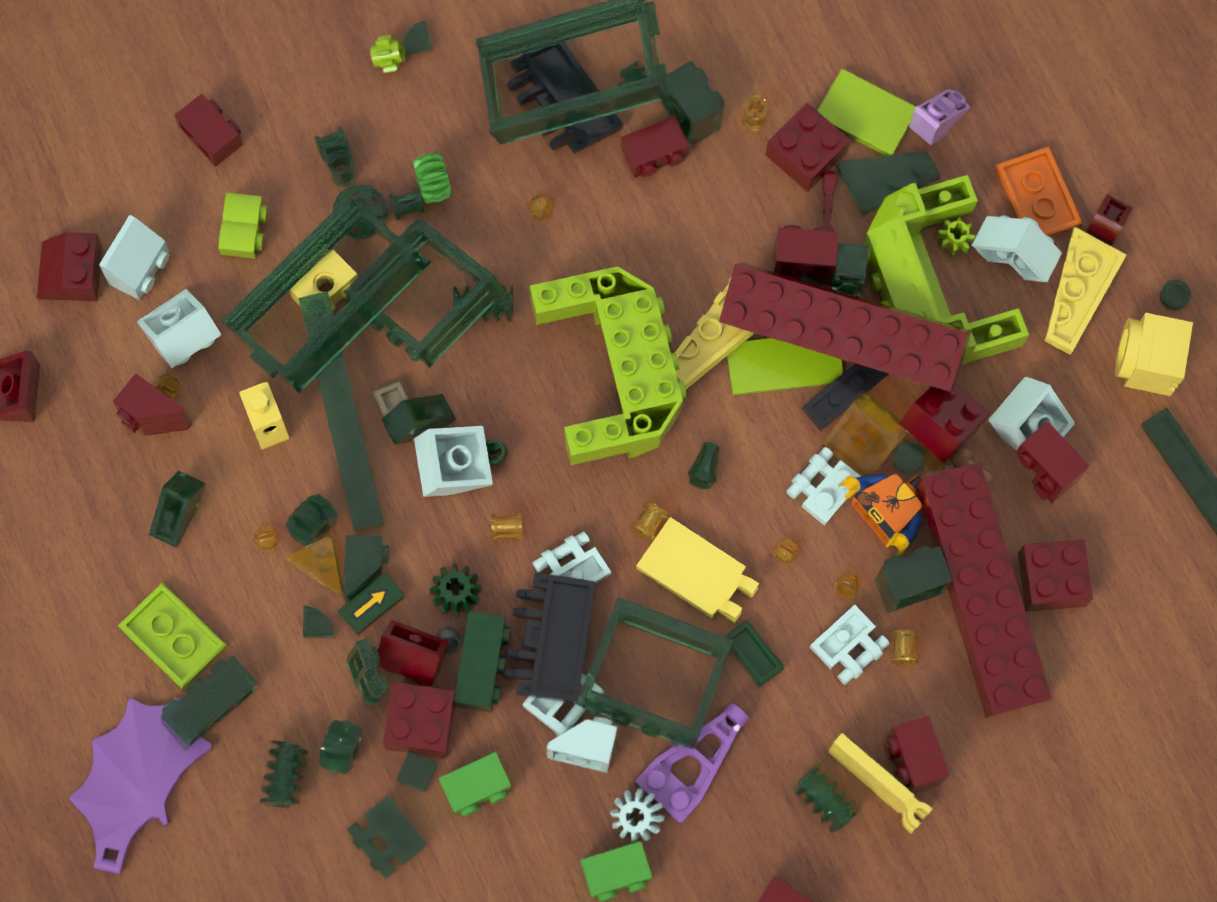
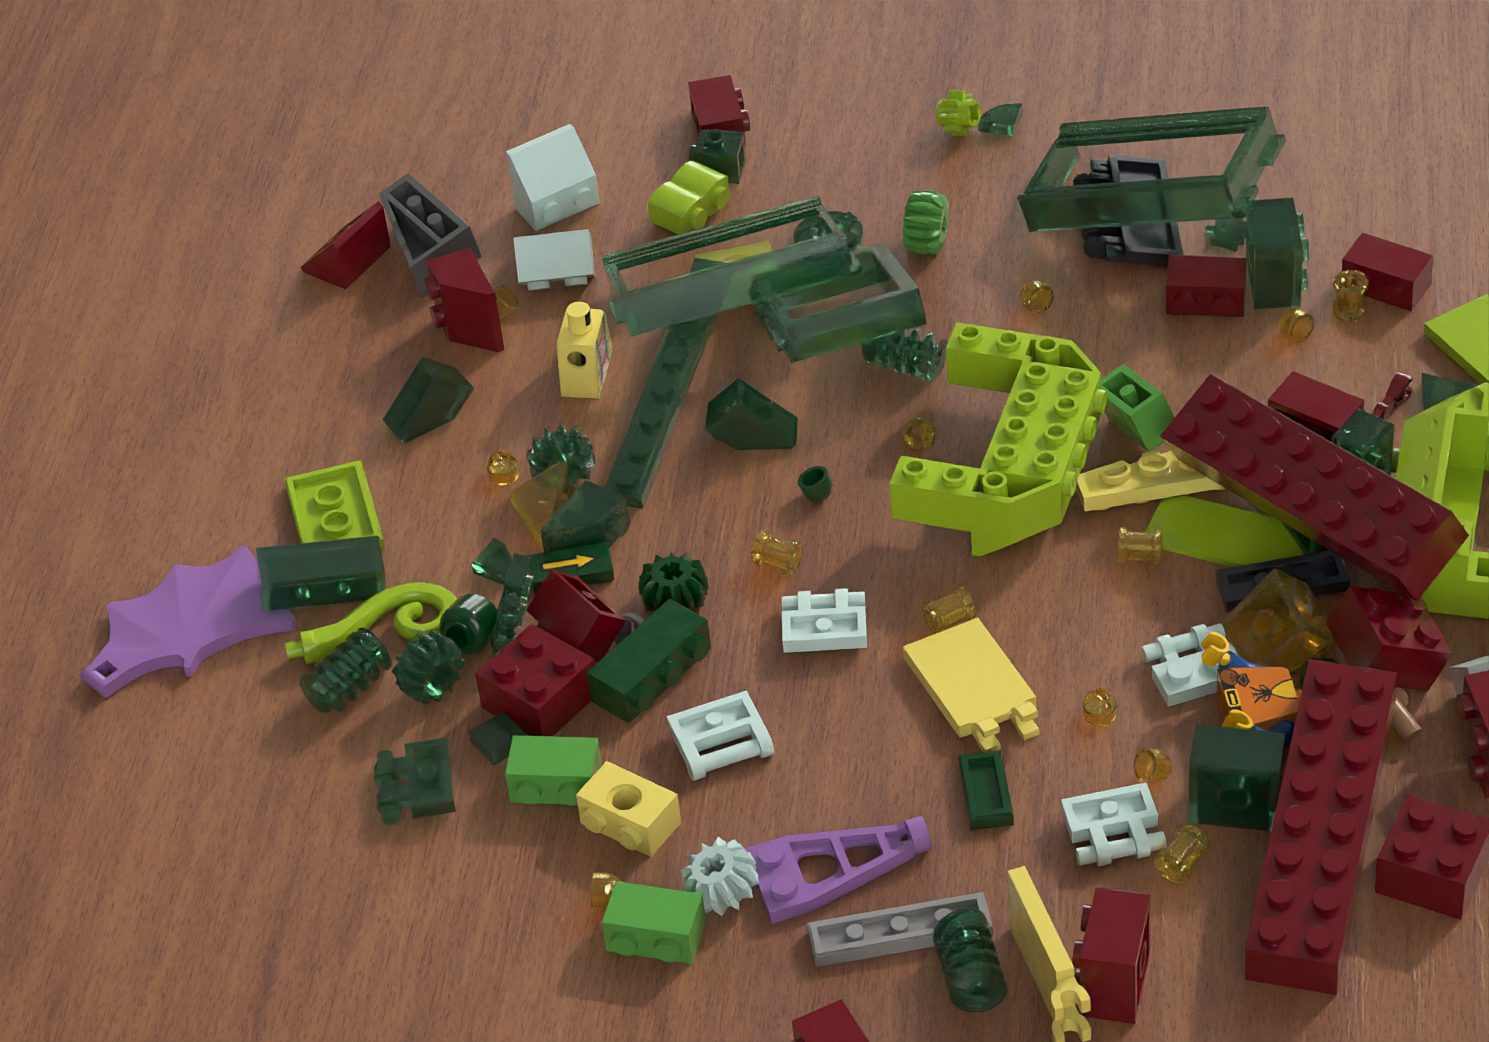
camera: 40 degrees right, 30 degrees down
(70, 267) = (482, 177): dark red slope -> none
(72, 353) = (424, 226): none -> dark grey wedge
(236, 172) = (721, 152): none -> clear green brick
(251, 749) = (408, 597): none -> lime plant
(335, 153) = (838, 180): clear green piece -> none
(339, 692) = (469, 622): none -> dark green head
(406, 203) = (890, 237): clear green bush -> none
(452, 460) = (760, 467): light aqua slope -> none
(529, 779) = (628, 809): none -> light yellow brick
(542, 376) = (925, 430): none -> clear yellow hinge
(558, 638) = (750, 665): black hinge -> none
(567, 859) = (602, 888): none -> clear yellow hinge
(585, 745) = (708, 773): light aqua slope -> none
(671, 630) = (935, 752): clear green window -> none
(679, 290) = (1136, 407): none -> bright green brick
(704, 468) = (1052, 588): clear green cone -> none
(730, 154) = (1296, 325): none -> clear yellow hinge
(739, 405) = (1140, 546): none -> clear yellow bush
(763, 790) = (885, 930): none -> light grey tile
(768, 77) = (1393, 271): none -> dark red brick
(807, 147) = (1392, 339): dark red brick -> none

